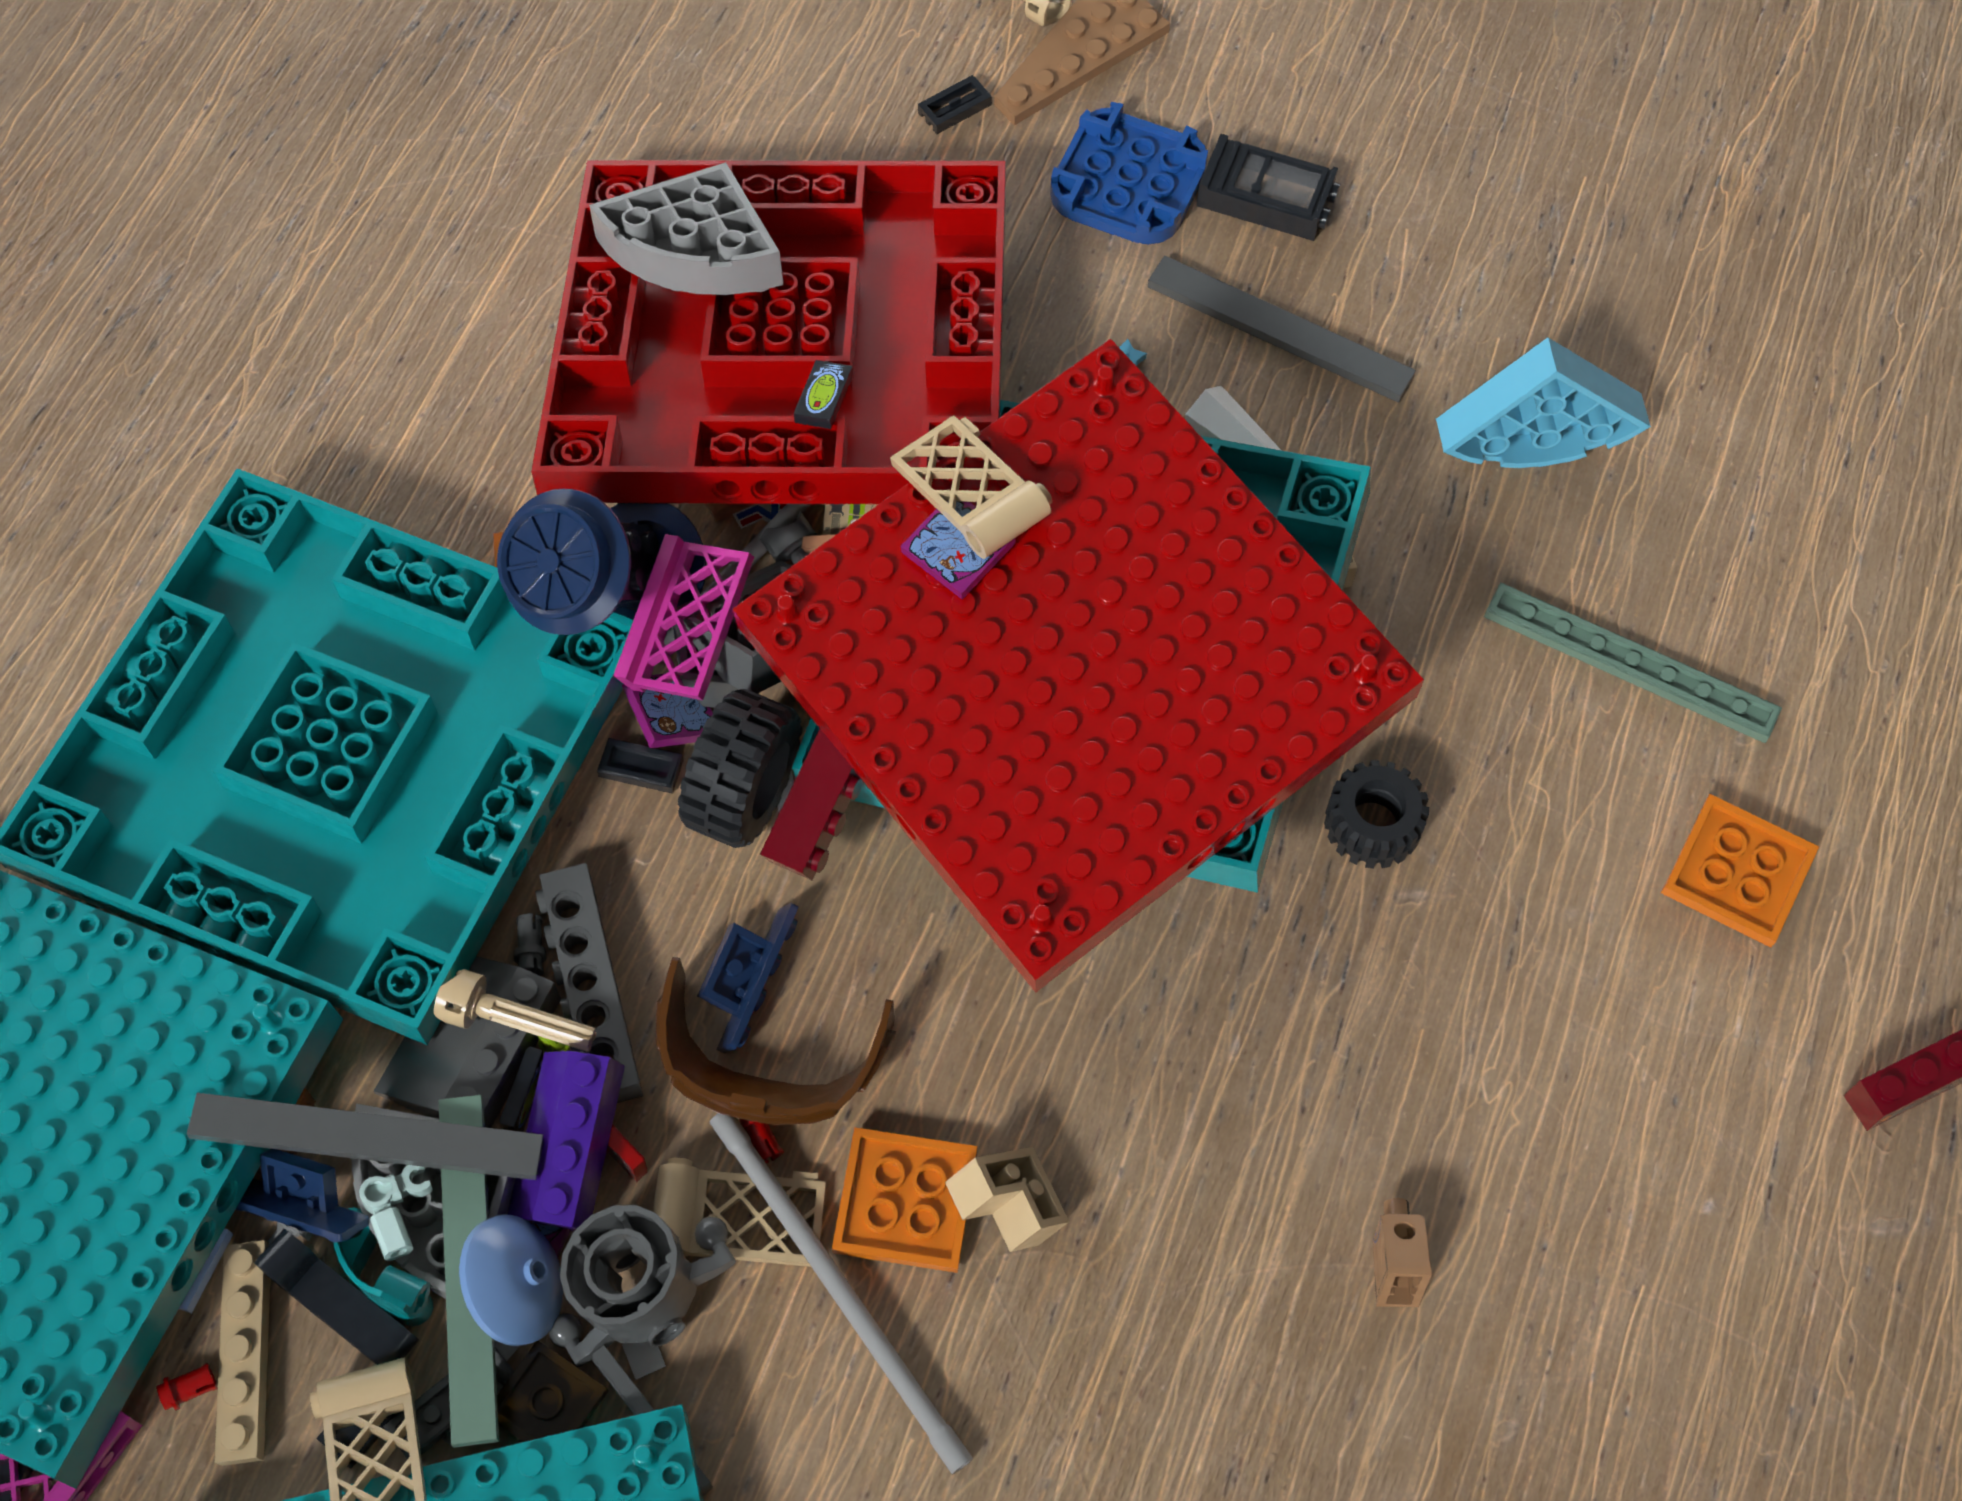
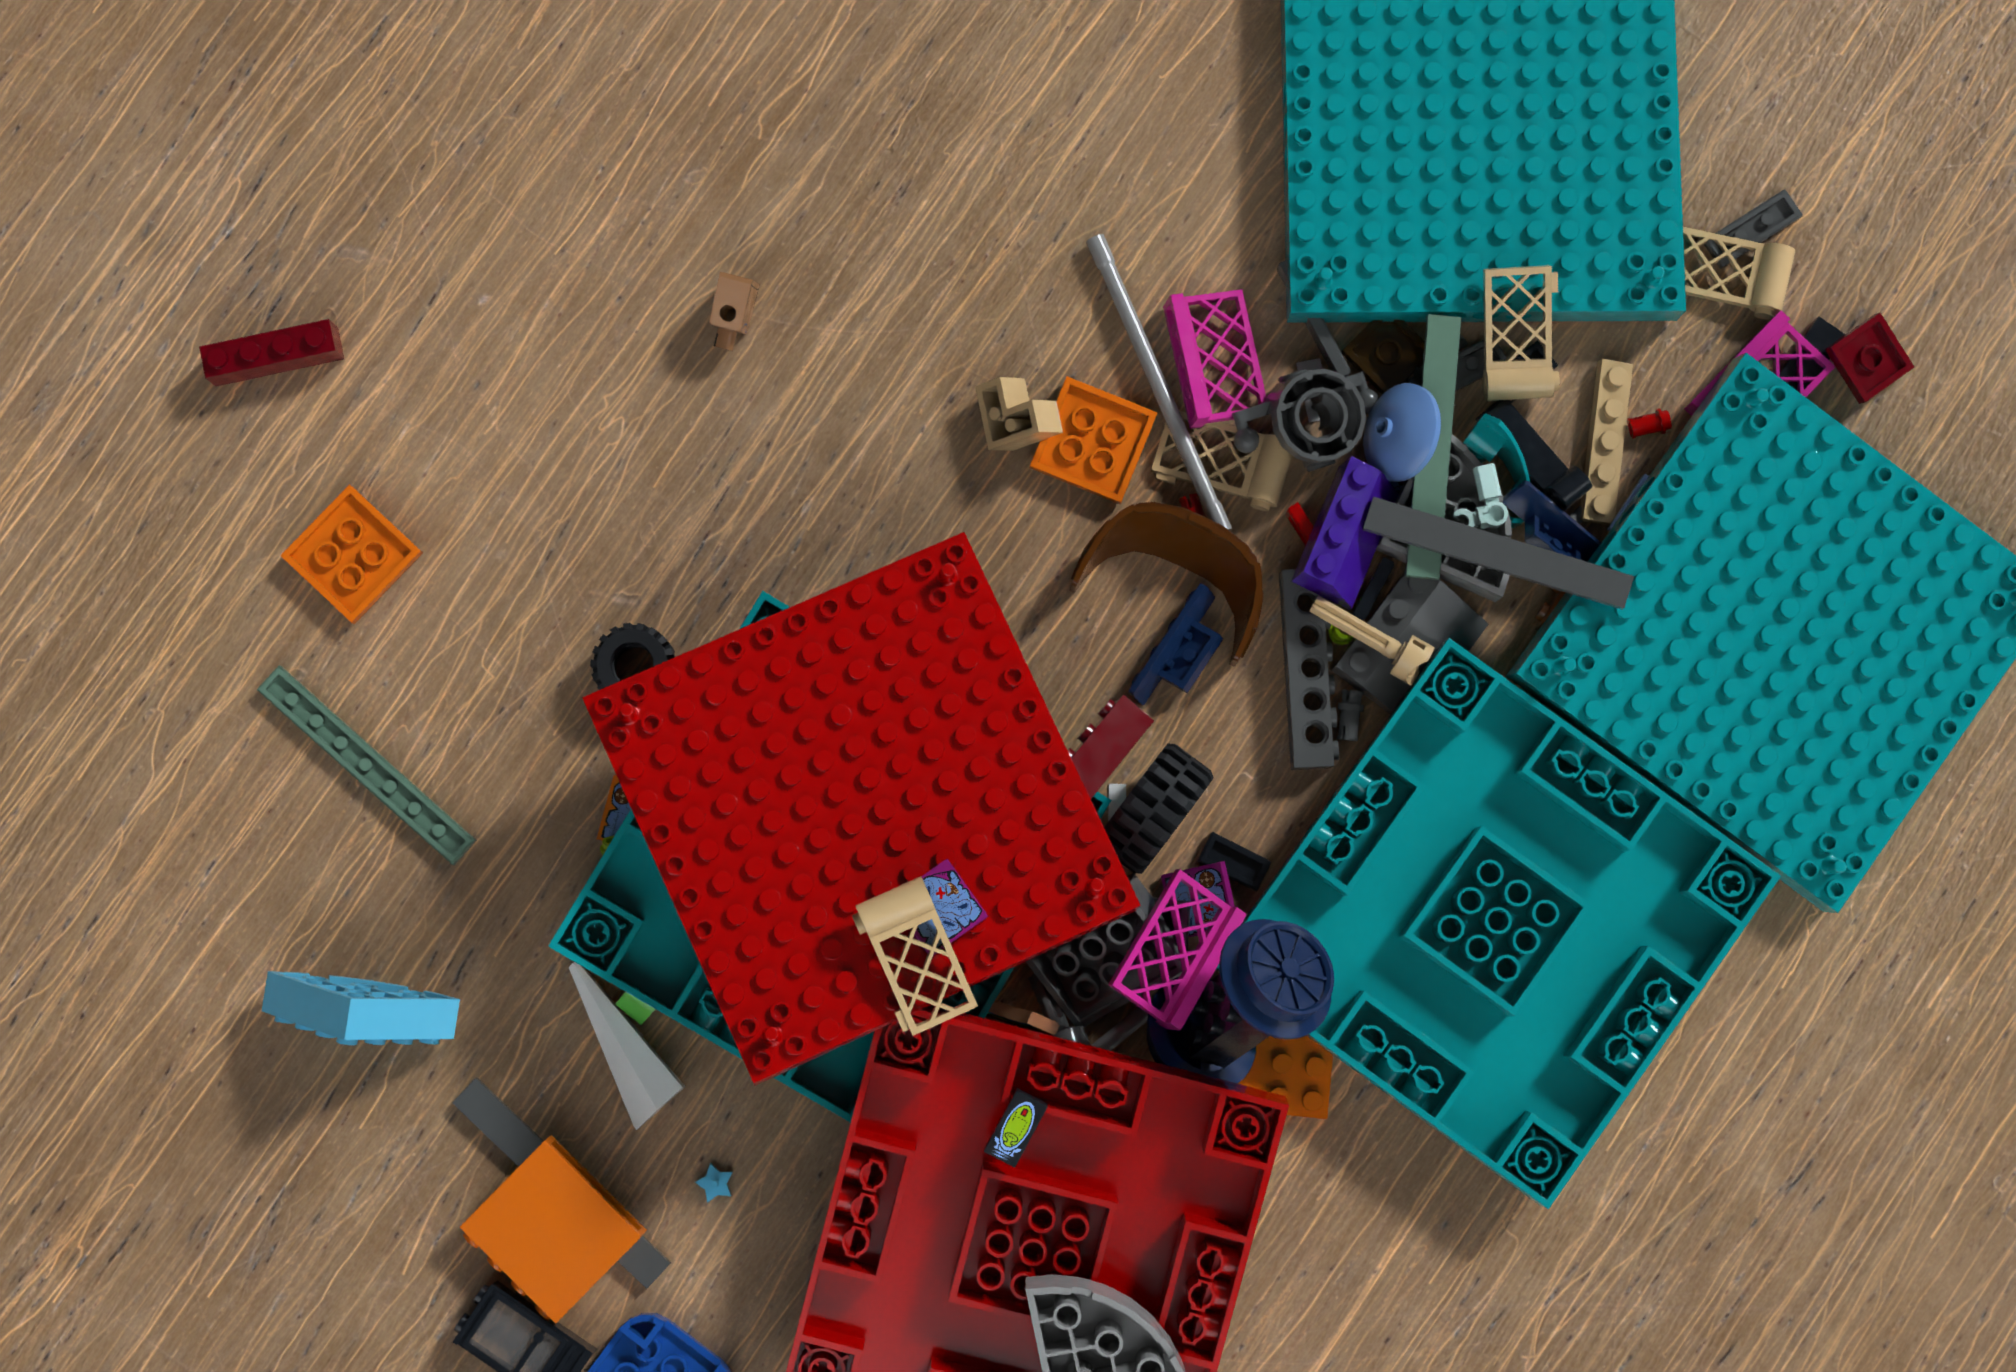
camera: 170 degrees left, 20 degrees up
(806, 1327) = (1188, 355): none -> dark pink fence
(1273, 279) = (552, 1229): none -> orange brick

